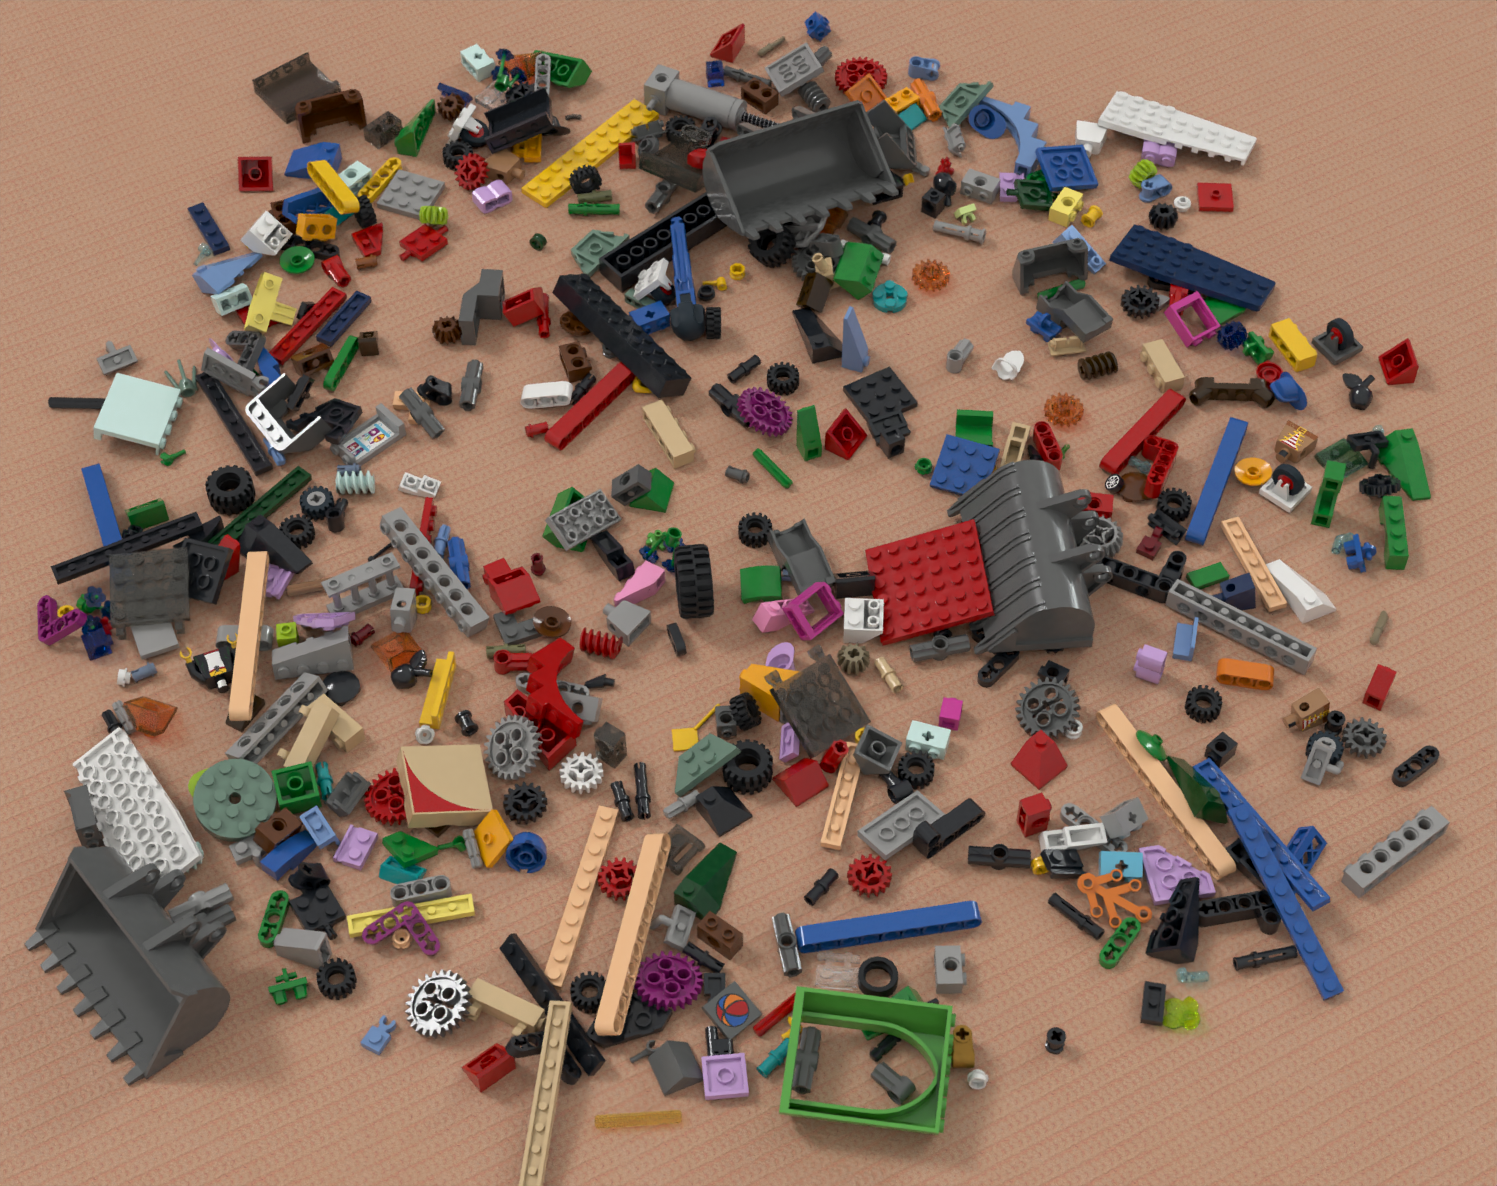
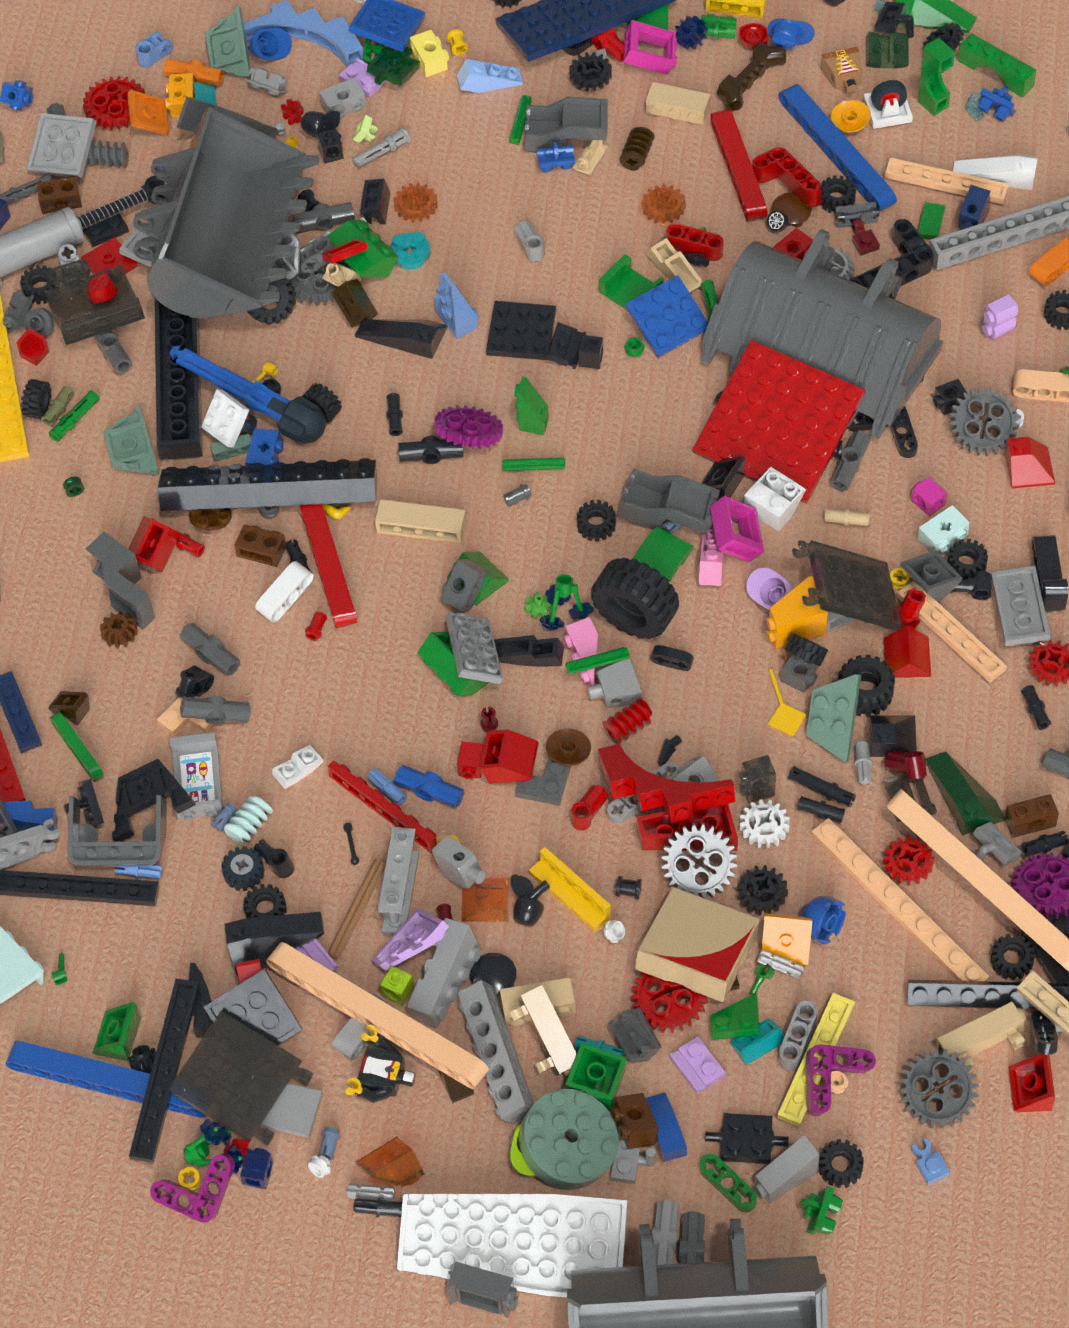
camera: 50 degrees left, 5 degrees up
(226, 479) = (157, 920): black tyre -> none
(266, 504) = (207, 925): dark green plate -> none
(309, 876) = (709, 1122): black piece -> none
(312, 360) = (52, 769): reddish brown brick -> none
(319, 828) = (659, 1081): medium blue panel -> none
(413, 546) = (432, 809): light grey brick -> none
(490, 650) = (566, 804): olive pin -> none
(629, 593) = (597, 660): none -> green axle
(697, 829) = (908, 763): none -> dark red piece
(740, 271) = (265, 342): yellow bush -> none
(783, 371) = (434, 381): black tyre -> none
(789, 743) = (860, 636): lavender plate -> none
(838, 255) = (344, 251): none -> red tile
(844, 435) = (548, 383): red slope -> none
(853, 658) = (808, 529): dark tan gear -> none
(910, 253) = (375, 200): none -> black hinge
(1009, 365) = (576, 212): white piece -> none
(1050, 259) = (505, 85): dark grey windscreen -> none
(1143, 467) = (777, 189): clear light blue arm -> none
(1185, 640) = (988, 278): medium blue panel -> none

